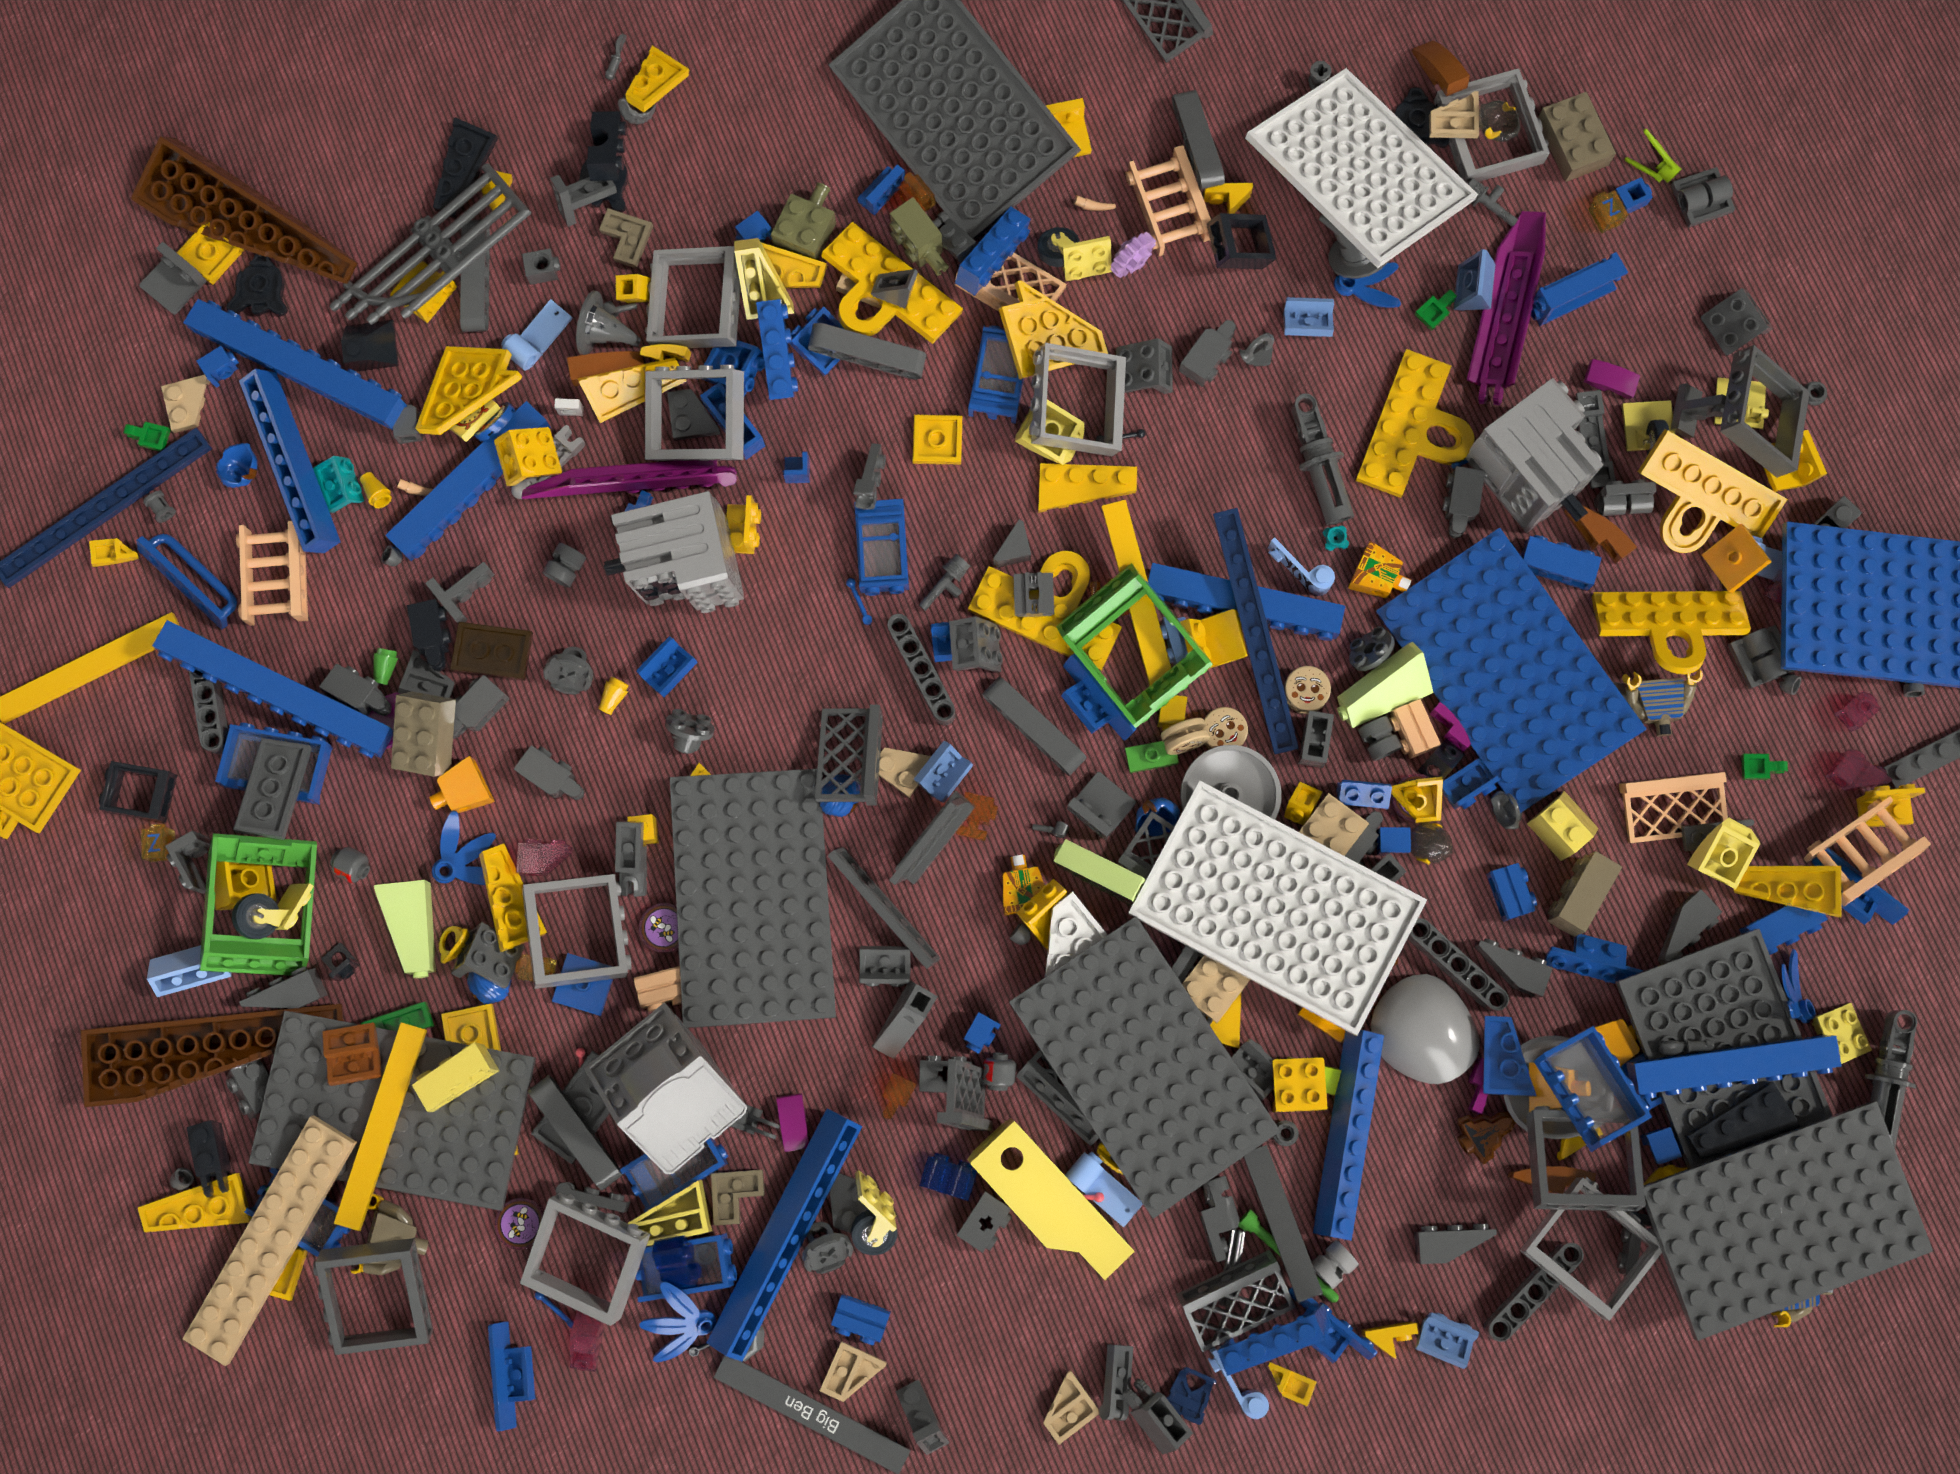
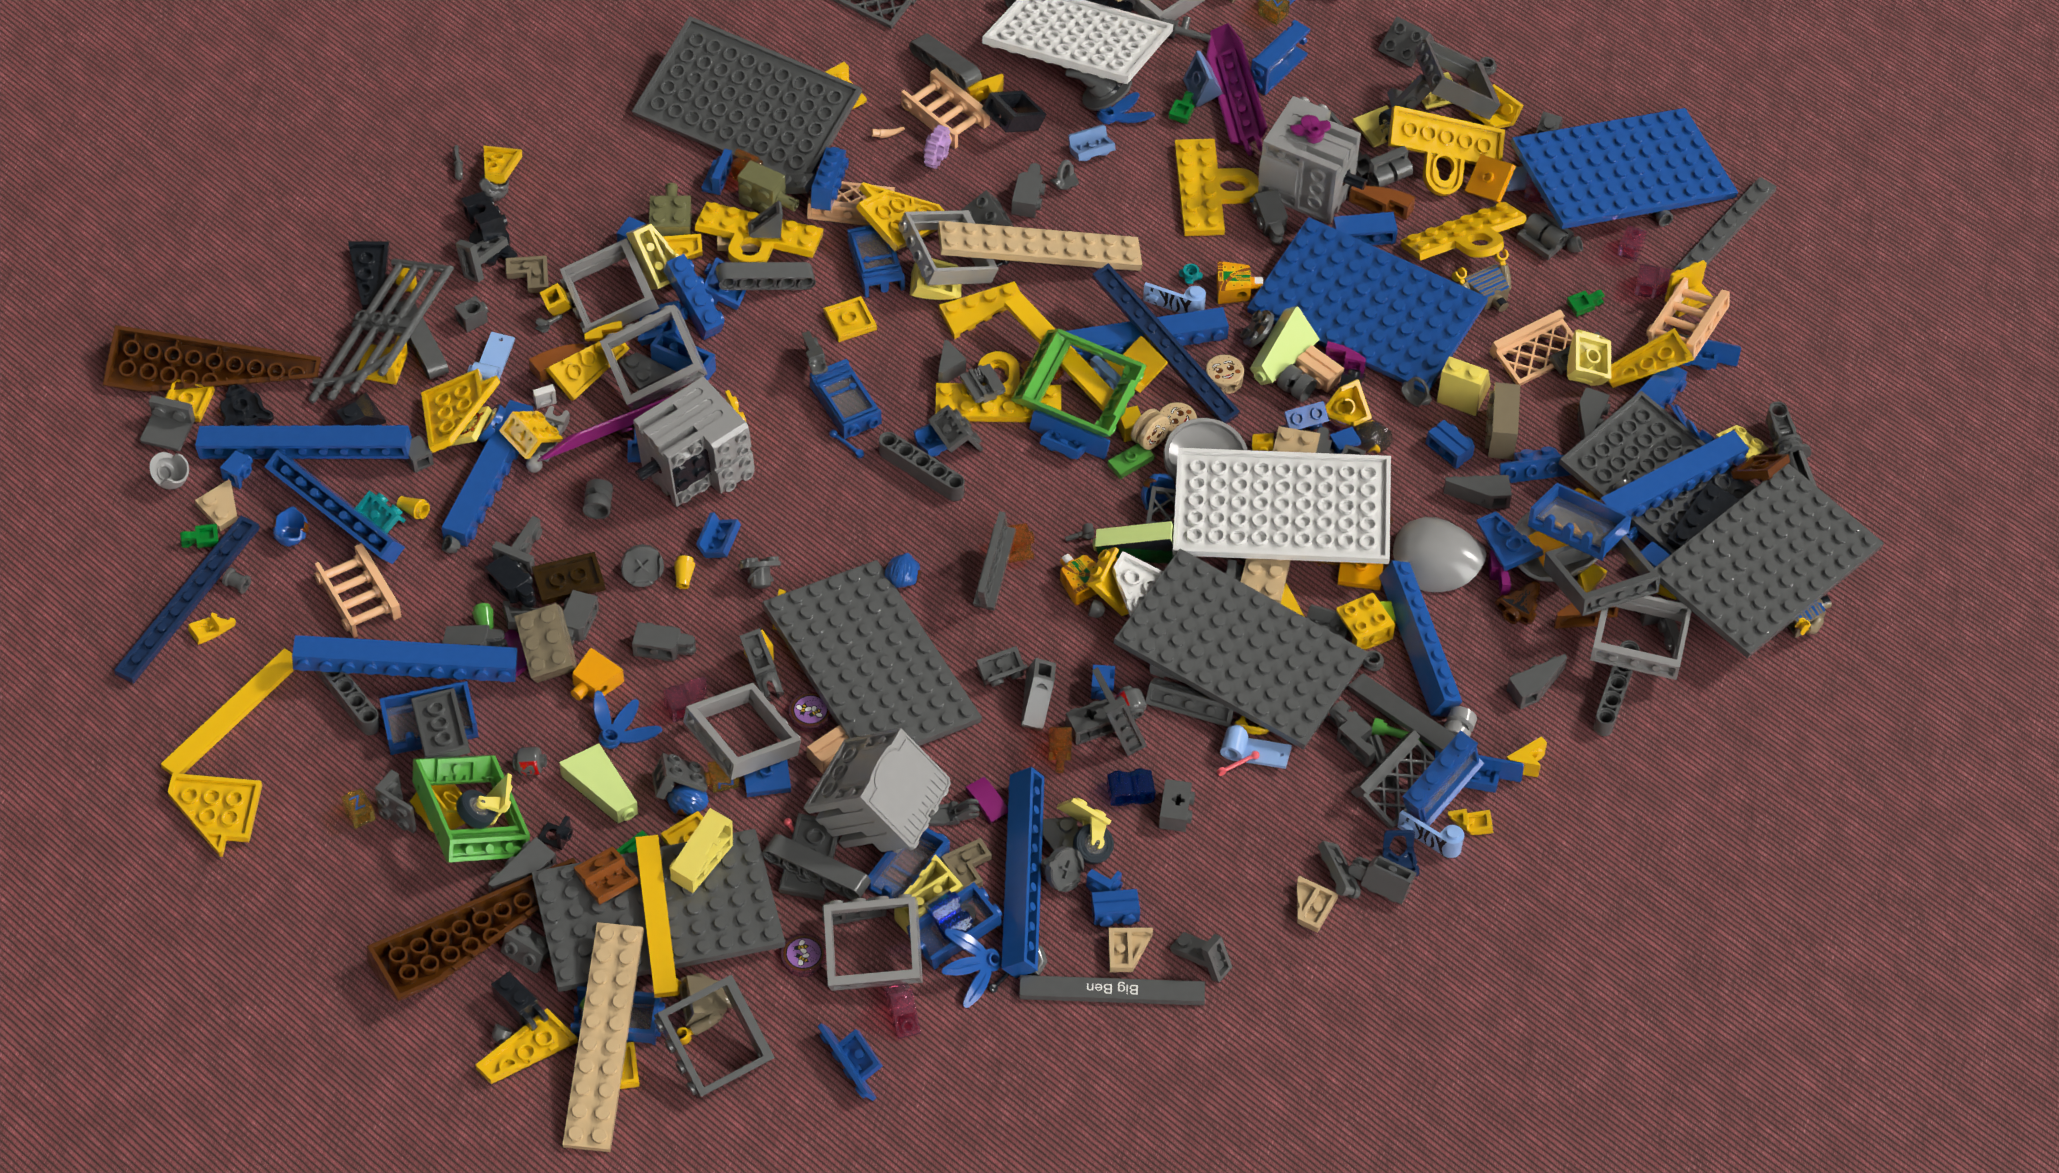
camera: 30 degrees left, 25 degrees down
(144, 341) = (169, 470): none -> light grey helmet
(161, 797) = (319, 763): black window -> none
(179, 972) = (430, 881): light blue brick -> none
(216, 615) = (284, 616): blue piece -> none
(412, 488) = (443, 496): light nougat helmet -> none
(461, 938) = (644, 793): yellow piece -> none
(505, 897) = (672, 733): yellow wing -> none
(539, 1296) = (882, 1007): blue hinge -> none
(599, 326) = (549, 328): dark grey piece -> none
(797, 469) = (752, 374): blue panel -> none
(857, 1283) = (1097, 882): none -> blue bracket
(870, 761) = (912, 530): dark grey fence -> none
(884, 907) = (979, 629): dark grey tile -> none
(901, 768) = (942, 538): tan wing -> none
(943, 772) = (976, 524): medium blue bracket -> none
(955, 569) = (911, 395): dark grey piece -> none
(1034, 726) = (1029, 471): dark grey beam -> none
(1048, 1200) = (1220, 769): light yellow piece -> none
(1078, 259) = (895, 163): light yellow plate -> none
(1101, 805) = (1110, 504): dark grey bracket -> none
(1180, 439) = (1039, 245): none -> tan plate
(1316, 739) = (1249, 399): dark grey brick -> none
(1318, 453) = (1151, 225): dark grey piece -> none
(1446, 1339) = (1570, 742): medium blue bracket -> none
(1468, 783) = (1380, 387): blue bracket -> none
(1468, 969) = (1436, 504): dark grey beam -> none
(1547, 433) = (1311, 128): none -> magenta plate
(1611, 377) = (1339, 105): magenta slope -> none
(1843, 1092) = (1760, 467): none -> reddish brown plate

